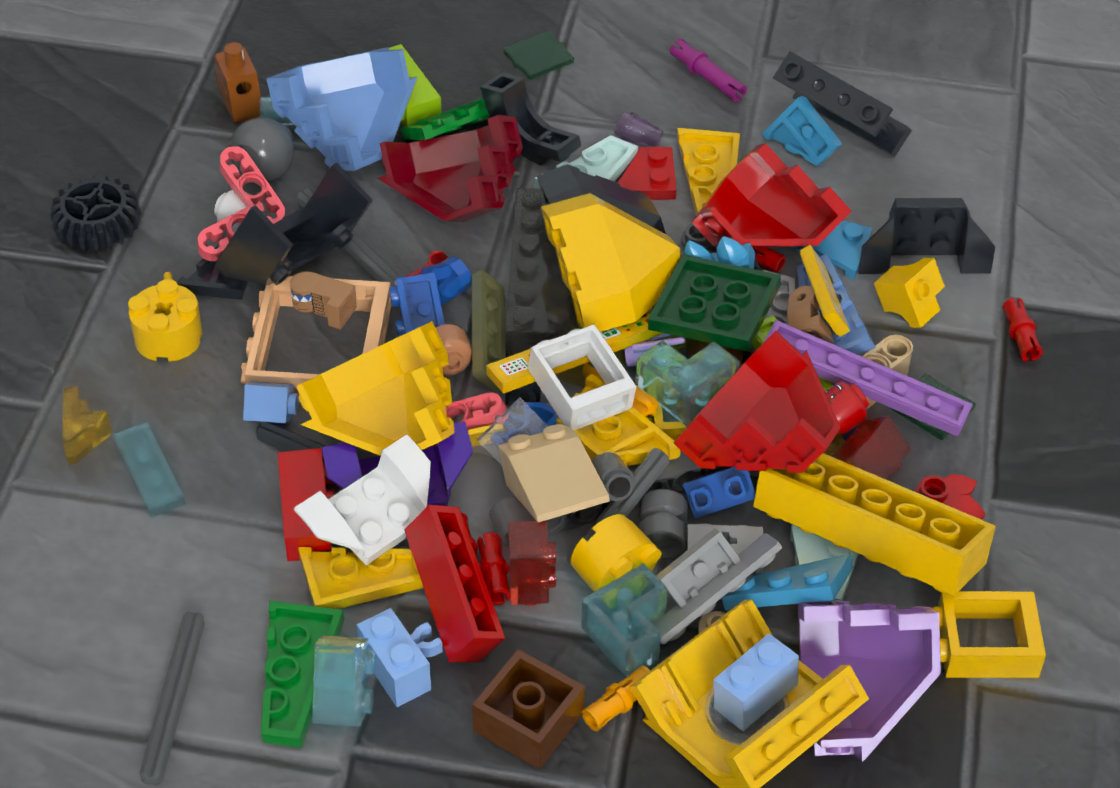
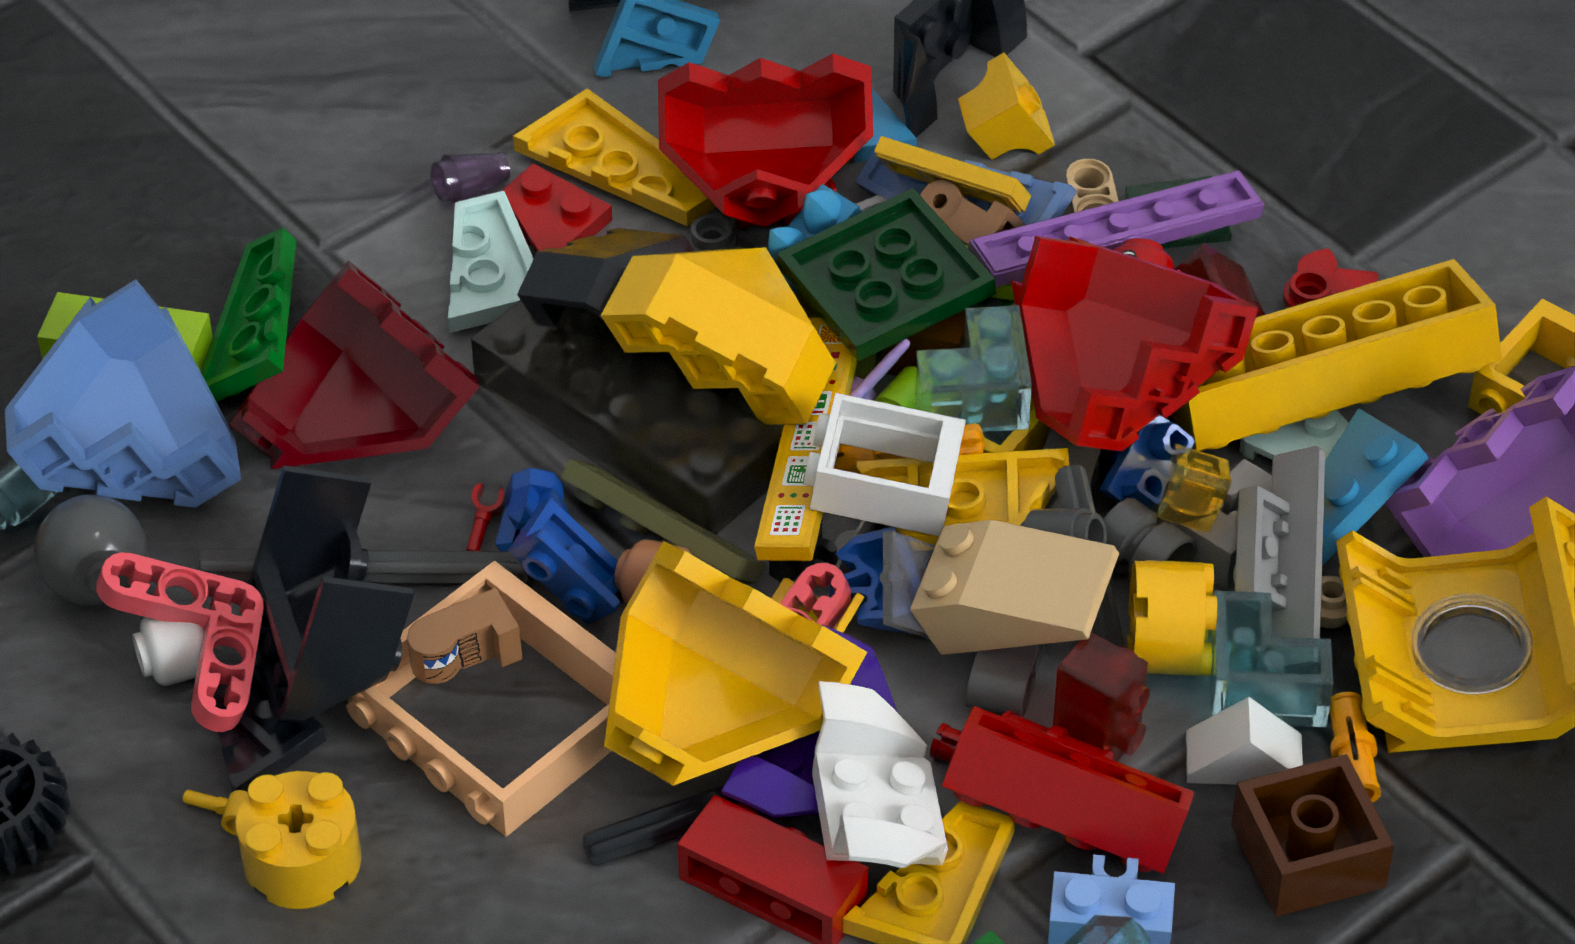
camera: 50 degrees left, 0 degrees up
(270, 402) = (567, 808): medium blue brick -> none
(539, 55) = (209, 184): clear green piece -> none
(540, 141) = (312, 255): black arch -> none
(575, 652) = (1240, 745): none -> white slope
(698, 63) = (435, 48): magenta pin -> none
(707, 506) = (1194, 488): none -> clear yellow slope
(755, 682) = (1467, 602): light blue brick -> none
(1022, 329) = (1146, 66): red pin -> none

